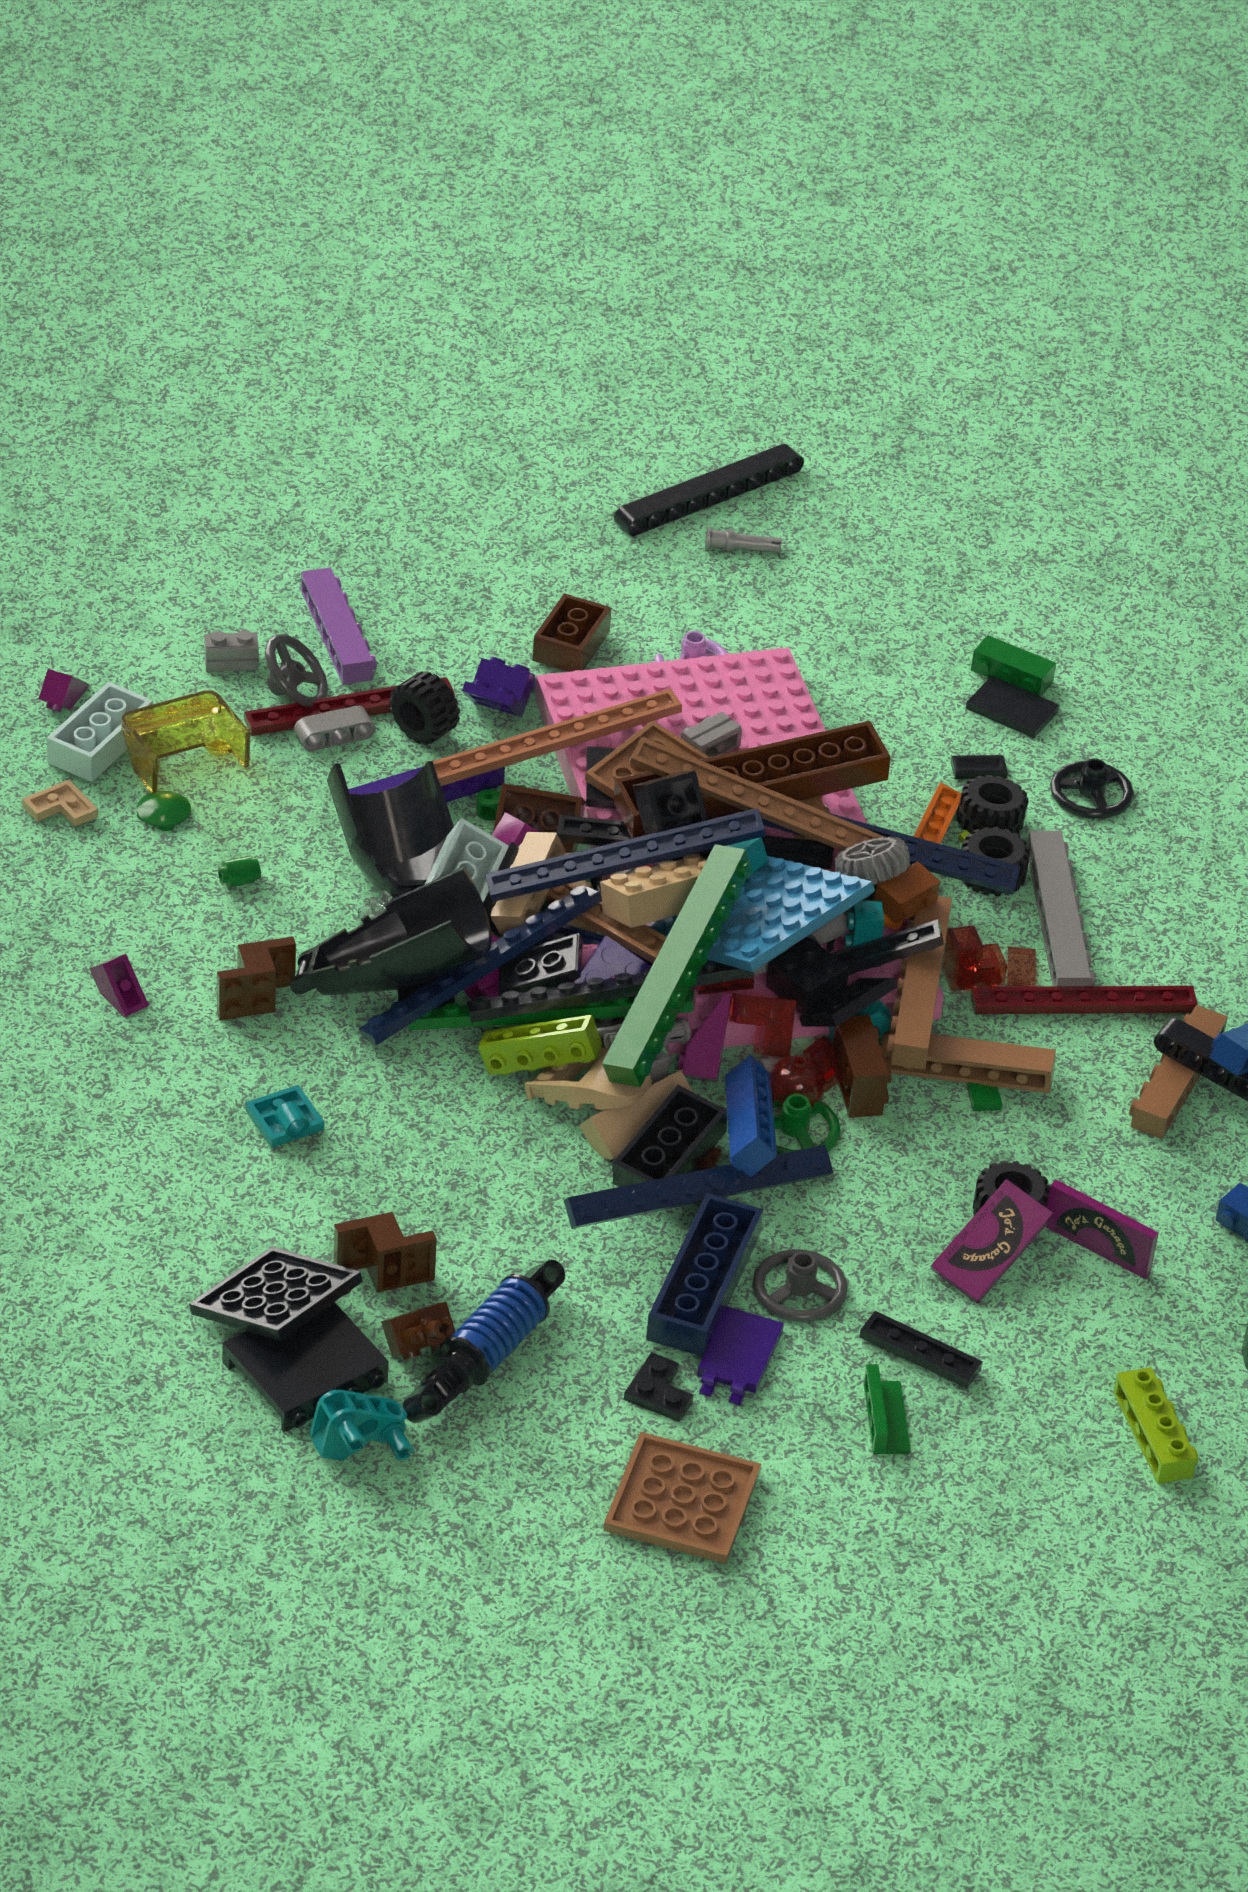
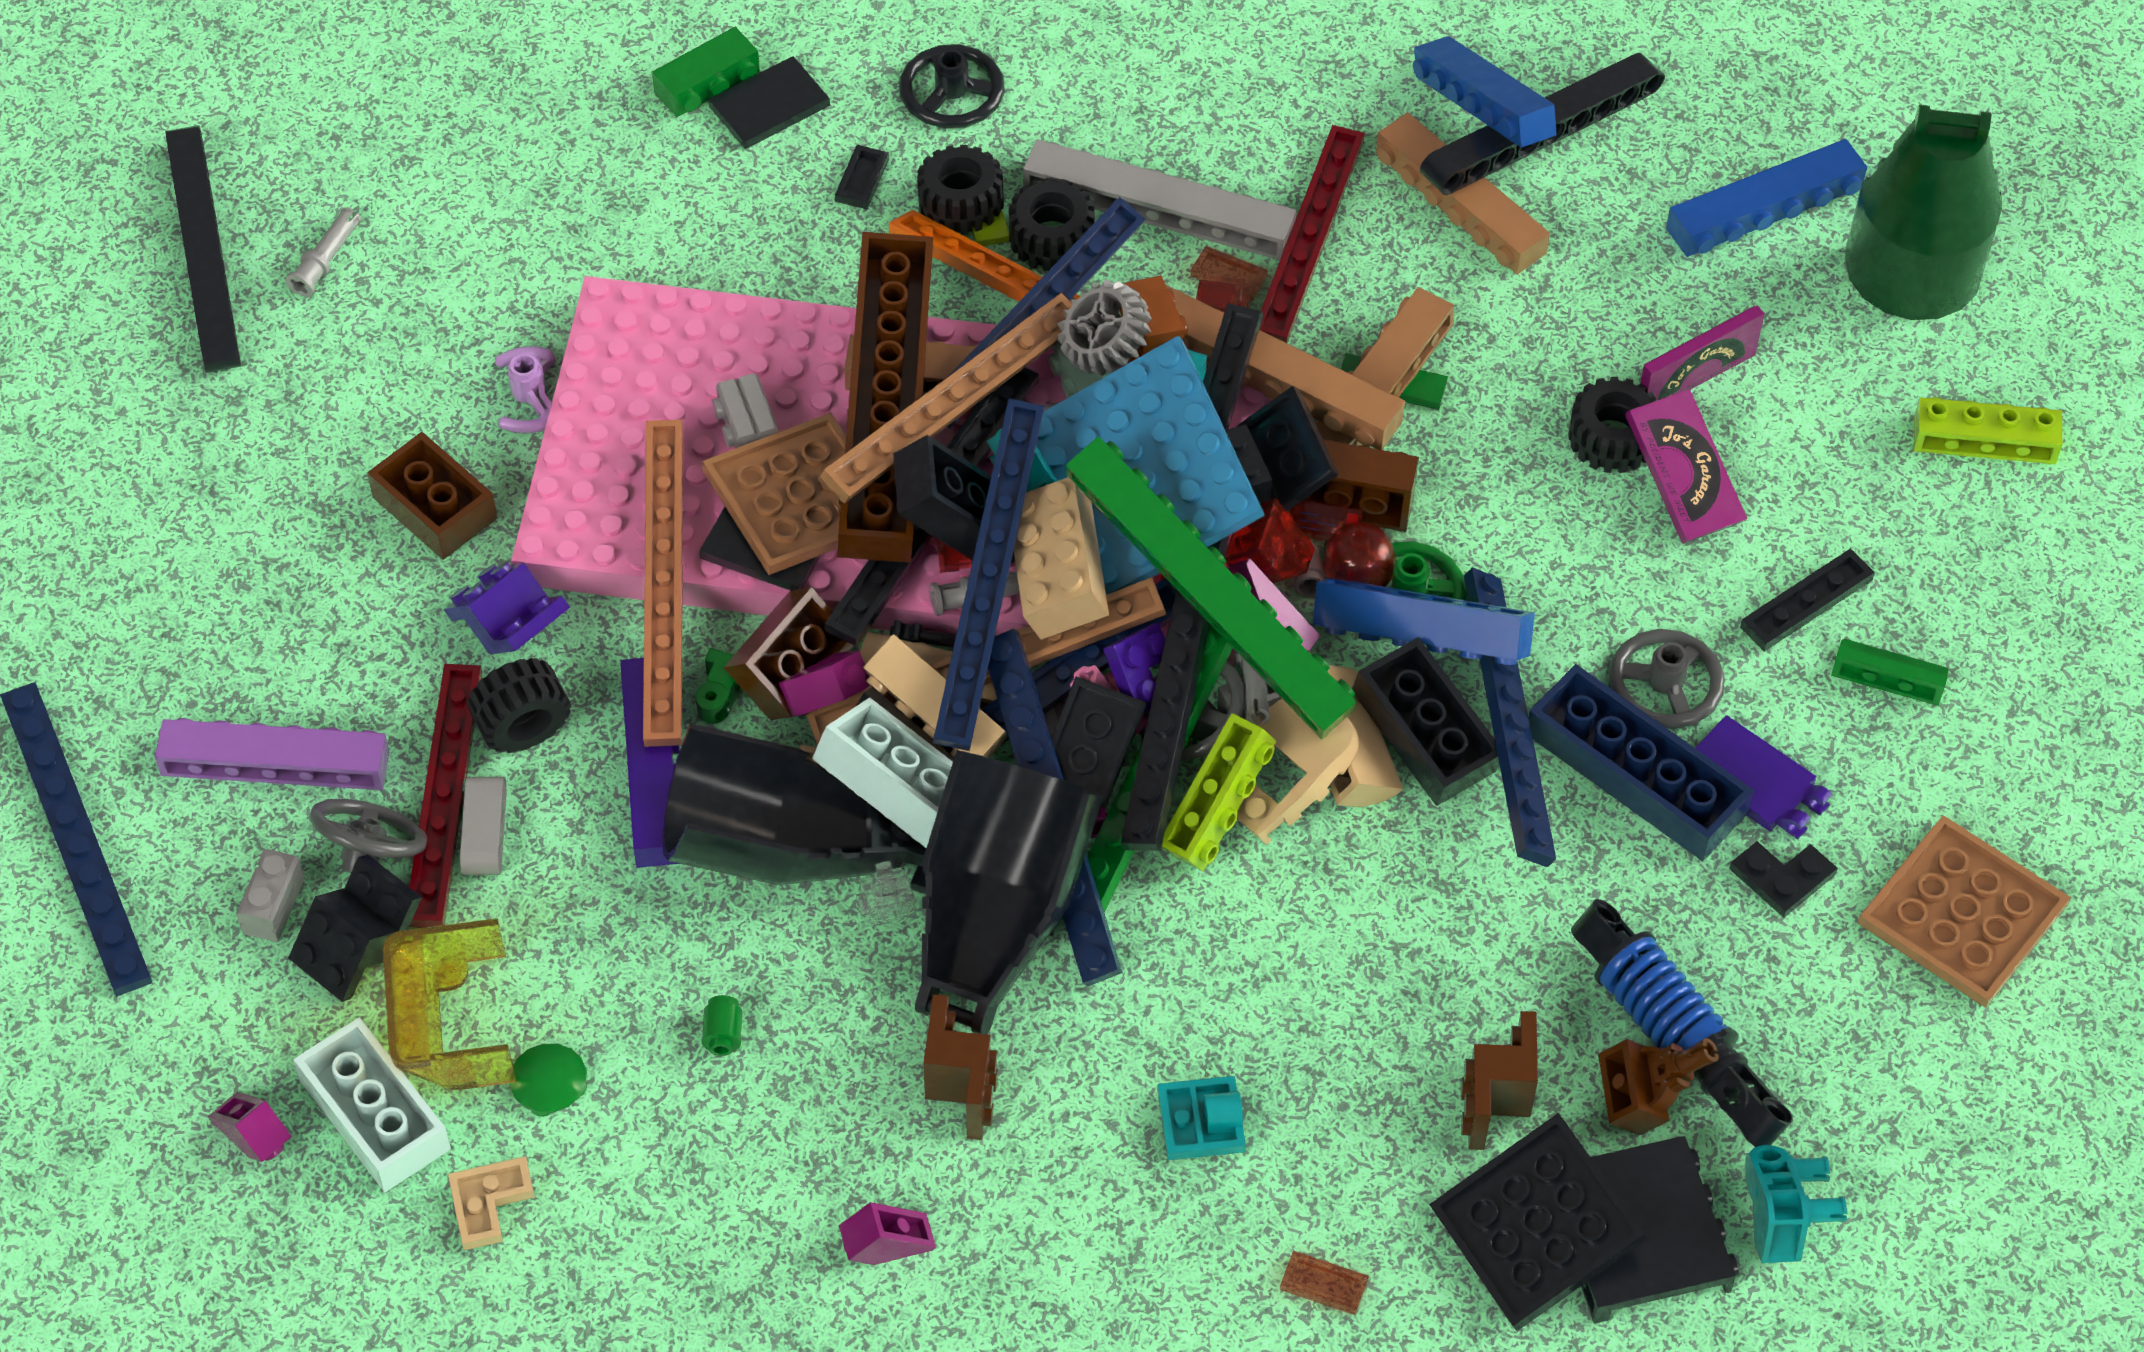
camera: 65 degrees left, 15 degrees up
(186, 1211) = (1324, 1283): none -> clear red tile
(228, 680) = (350, 926): none -> black bracket
(233, 568) = (76, 840): none -> dark blue plate

